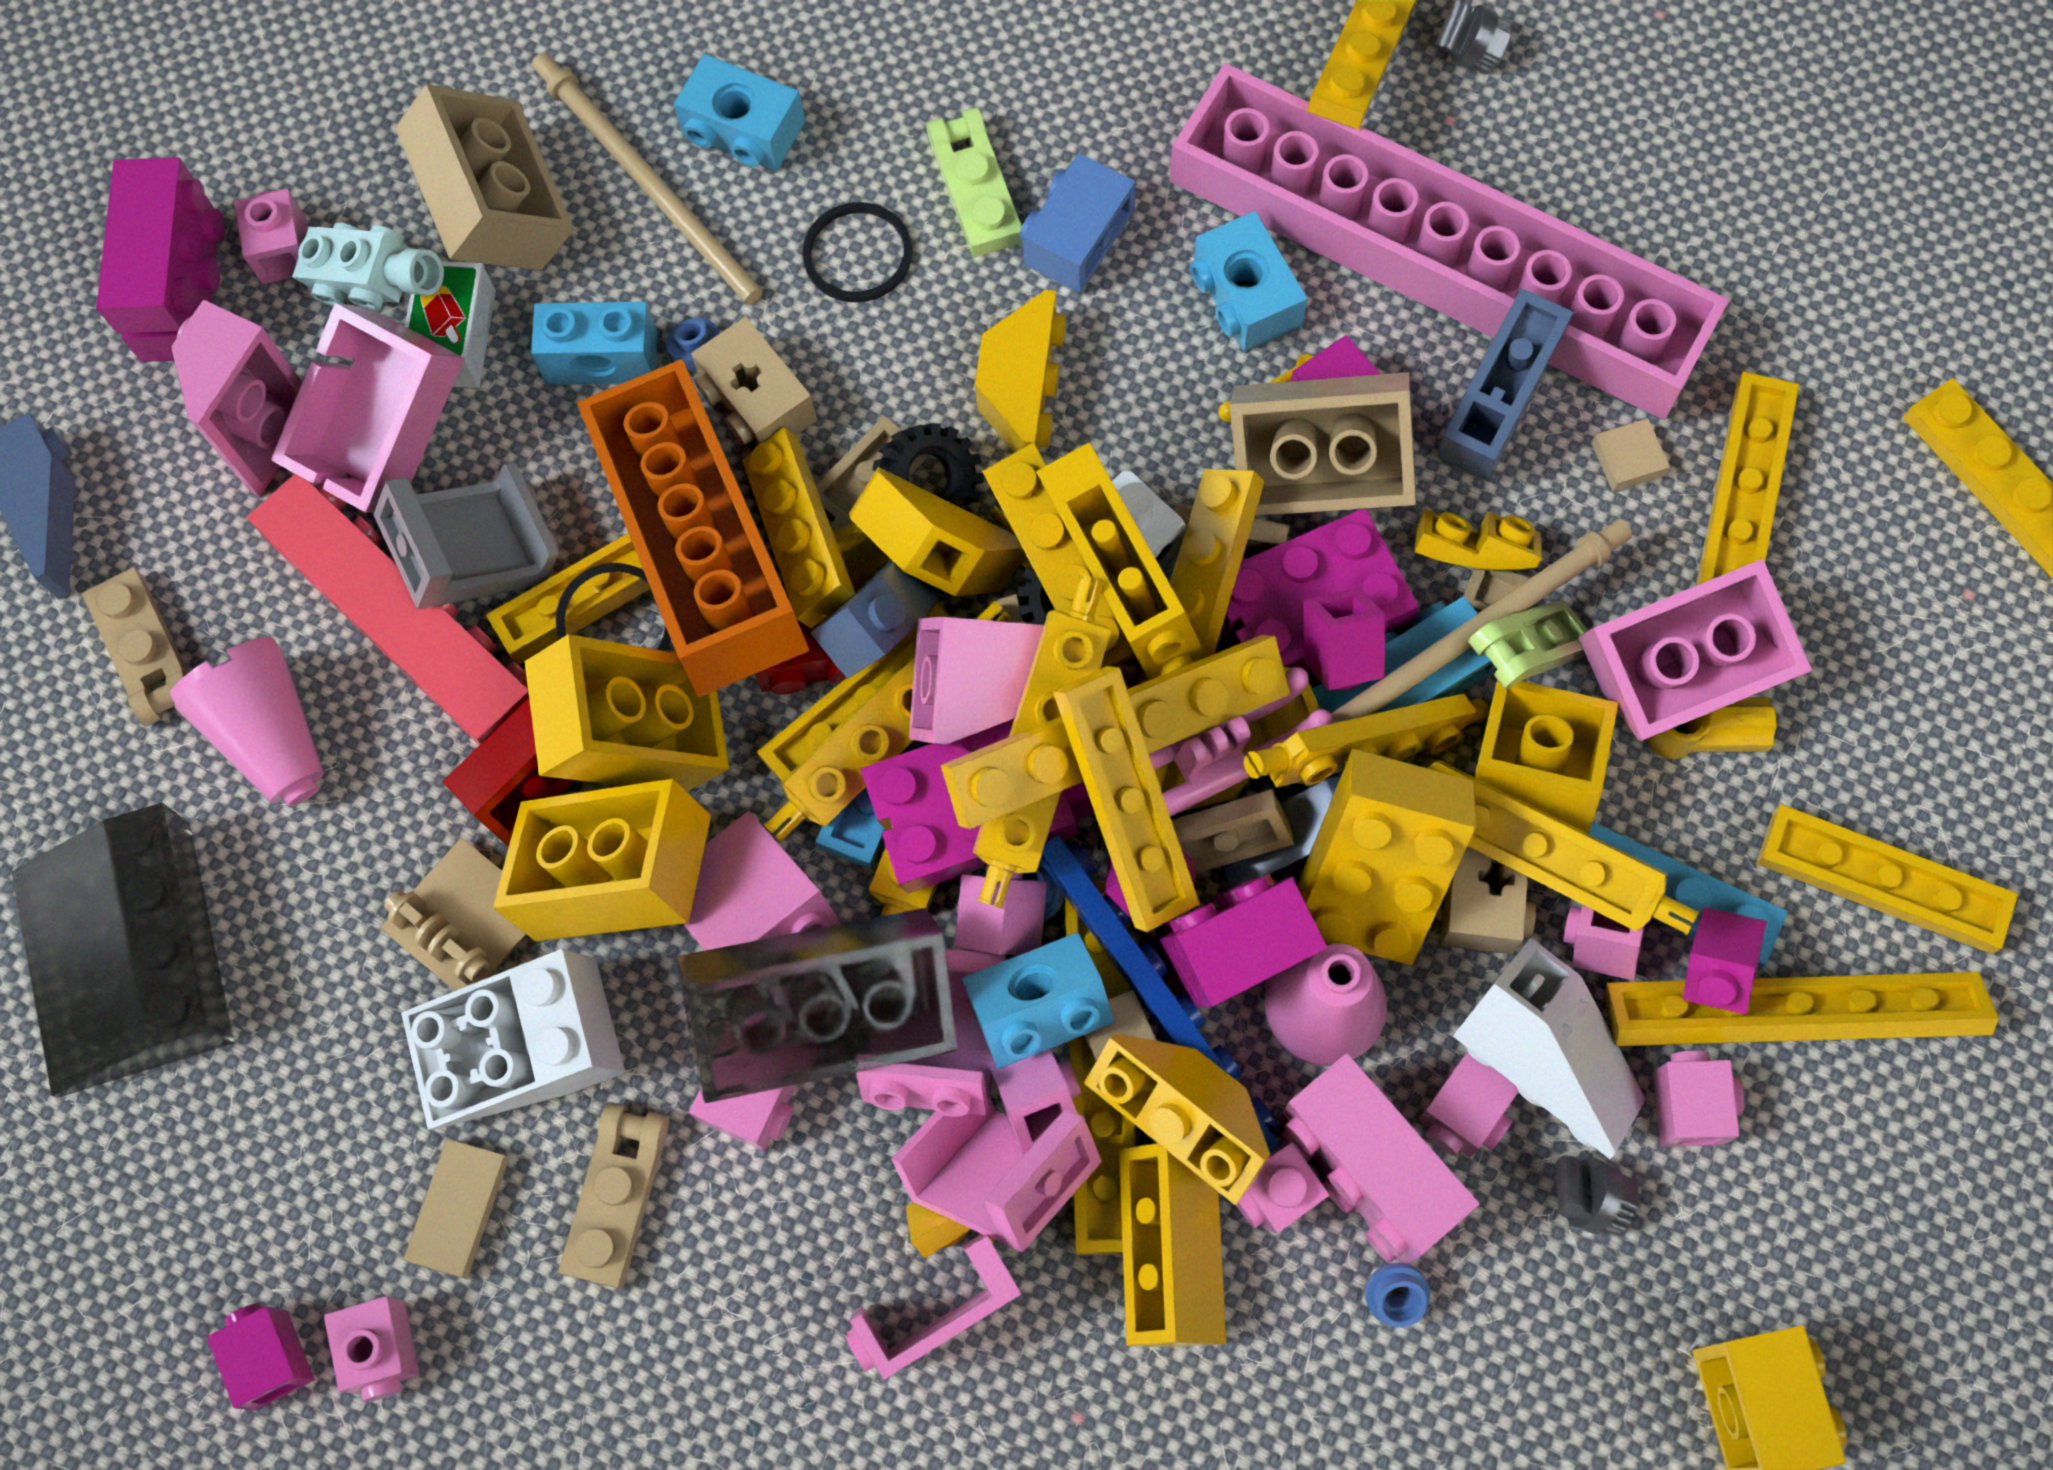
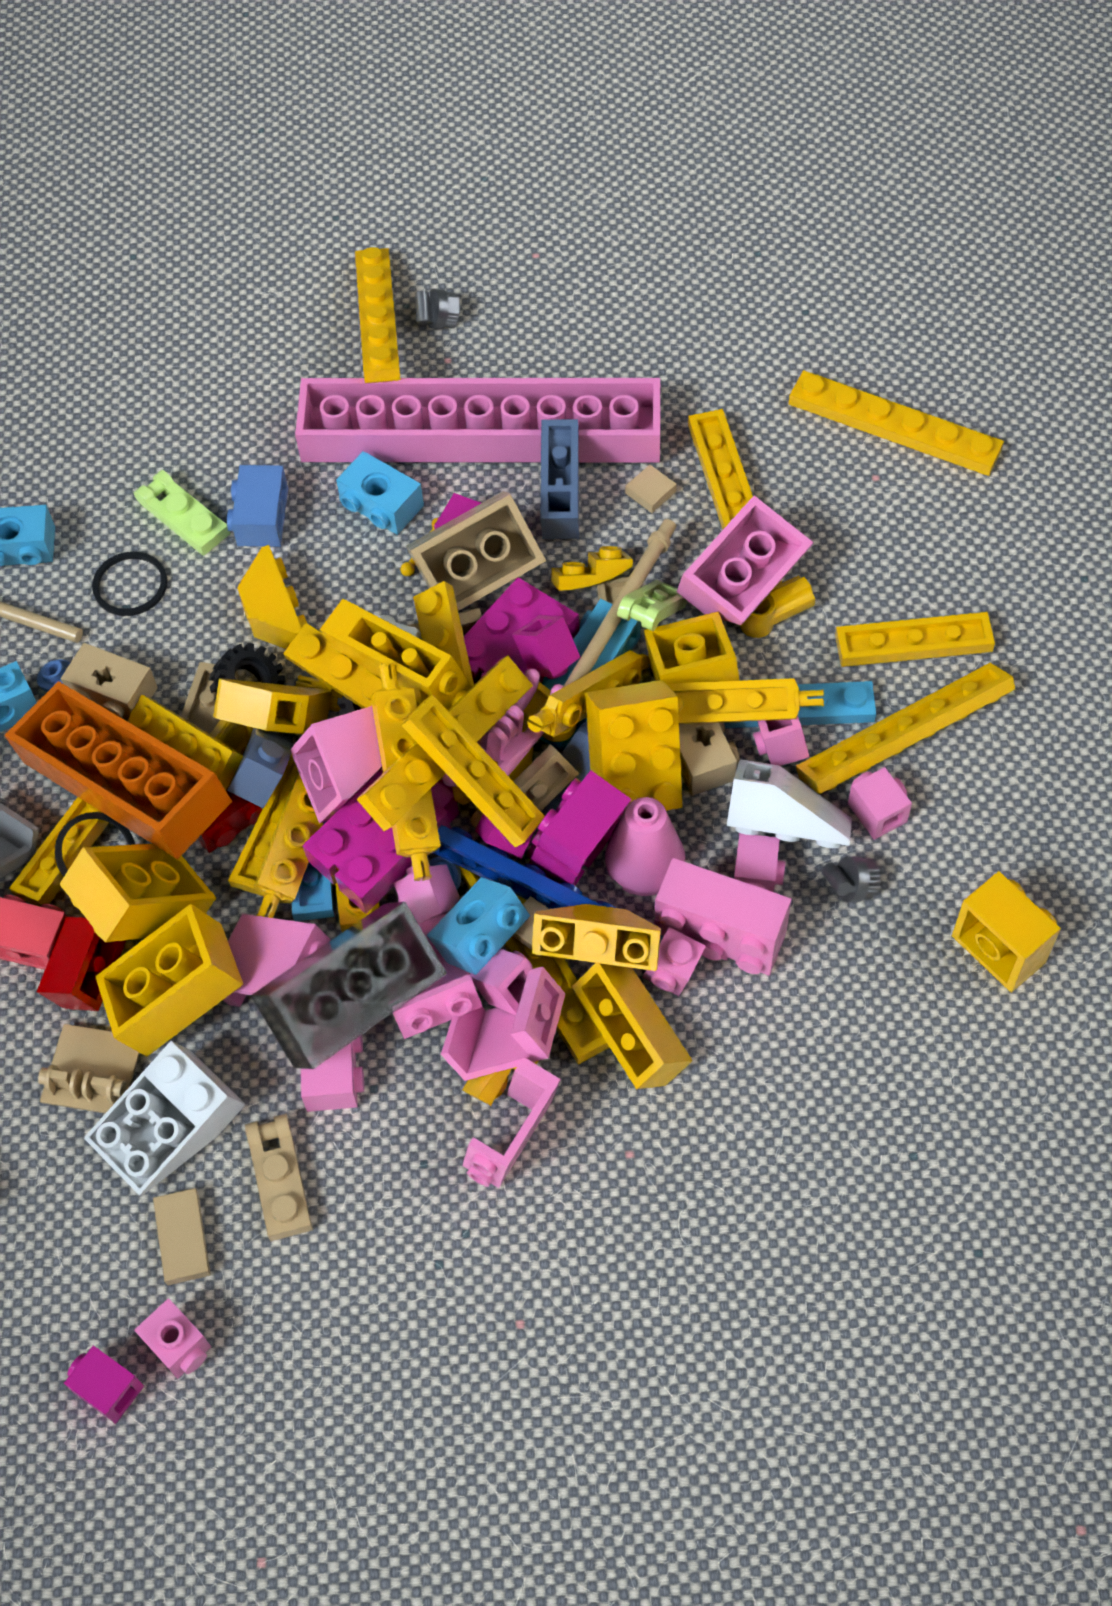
camera: 30 degrees left, 10 degrees down
(1402, 1309) = (784, 990): medium blue plate -> none
(1724, 960) = (852, 718): dark pink brick -> none

